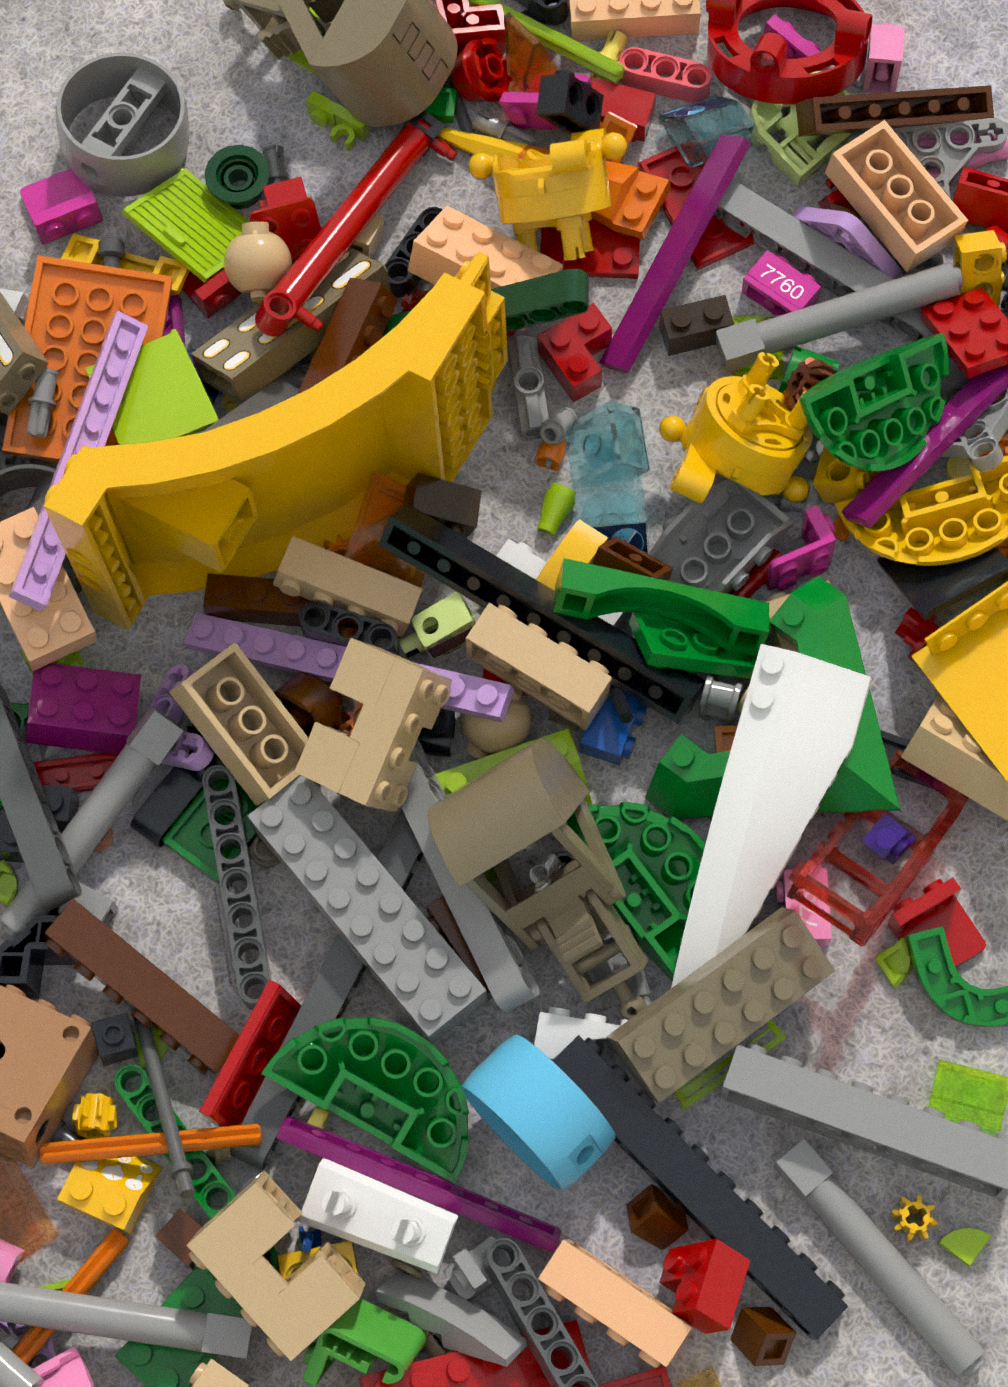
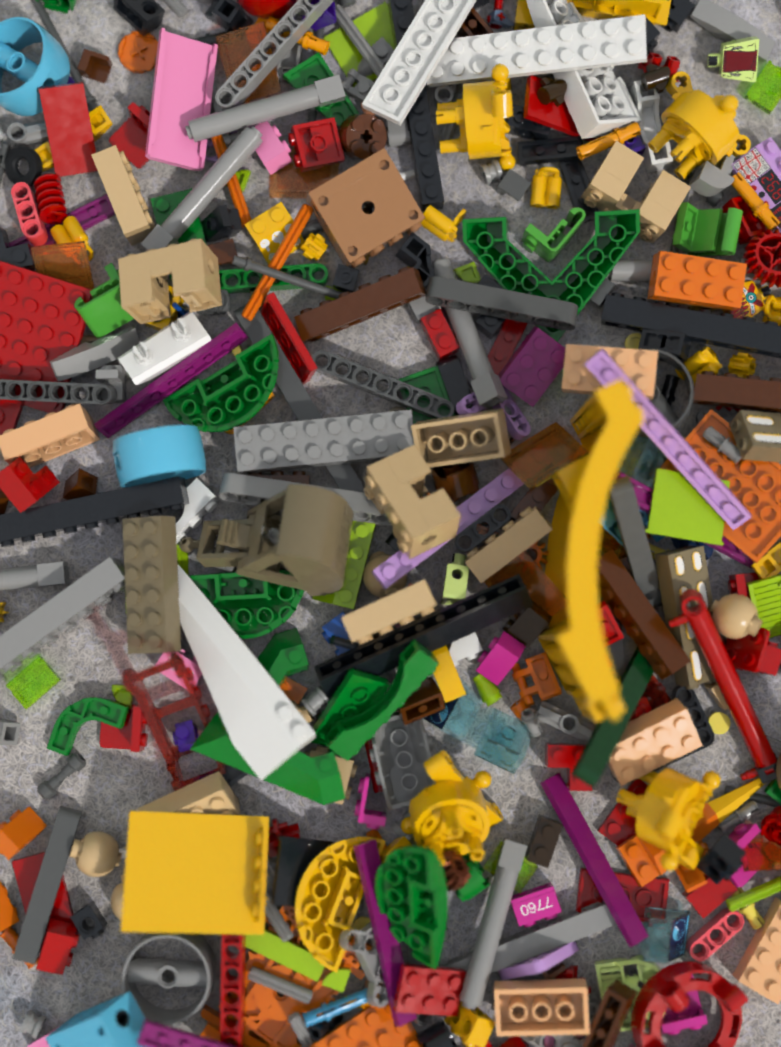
camera: 120 degrees right, 15 degrees up
(117, 861) = (439, 334): none -> red brick
(143, 1271) = (221, 223): none -> black brick
(196, 615) = (543, 455): none -> clear orange piece
(402, 219) = (719, 722): none -> light yellow tile
(492, 449) = (542, 675): none -> orange plate
(503, 510) = (500, 658): none -> dark pink brick

